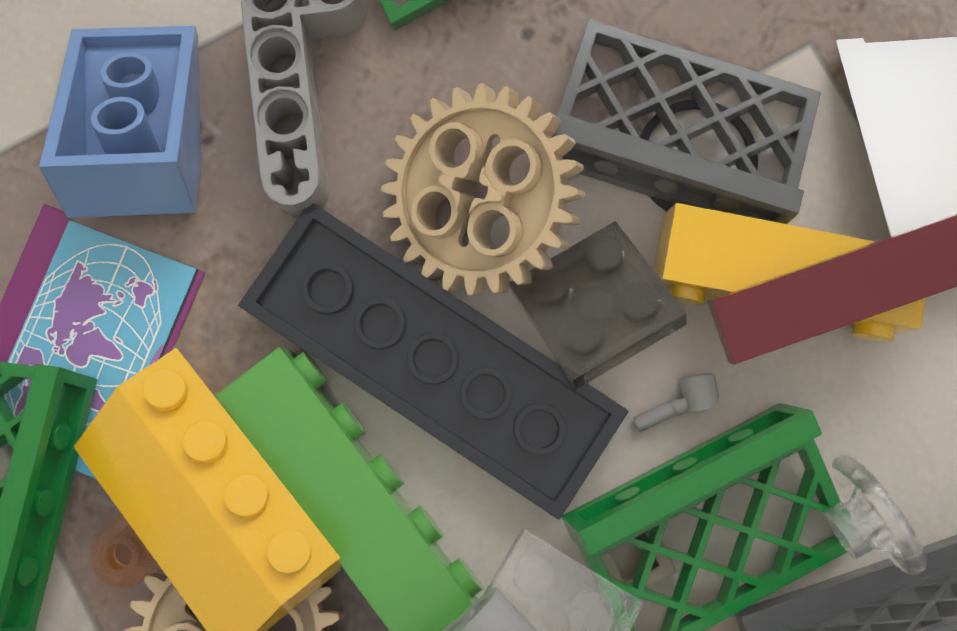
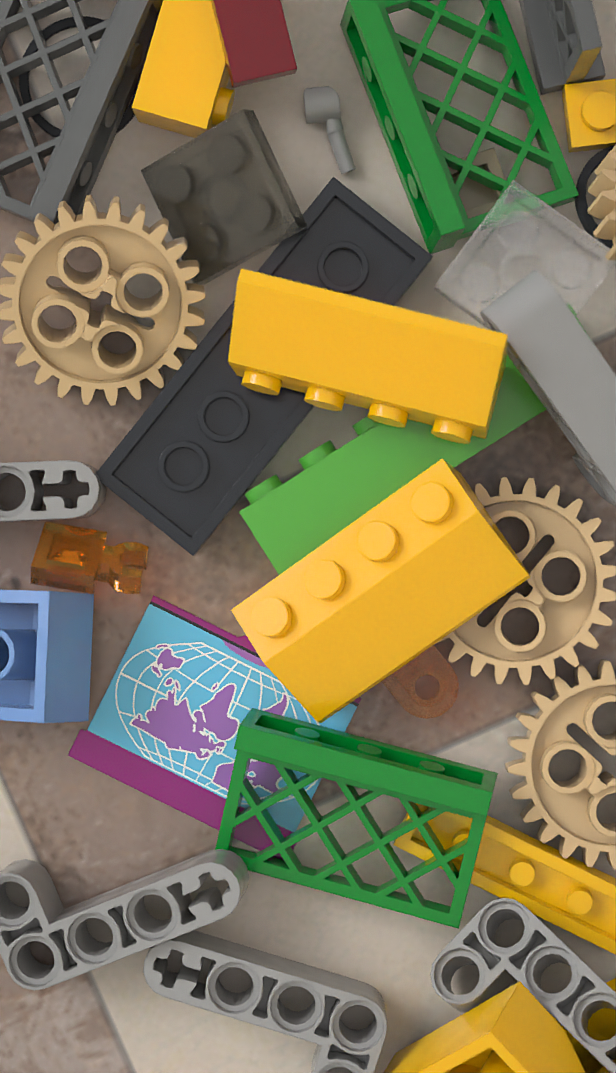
camera: 85 degrees left, 5 degrees up
(230, 194) = (80, 557): none -> clear orange plate
(441, 470) = (366, 356): none -> yellow slope

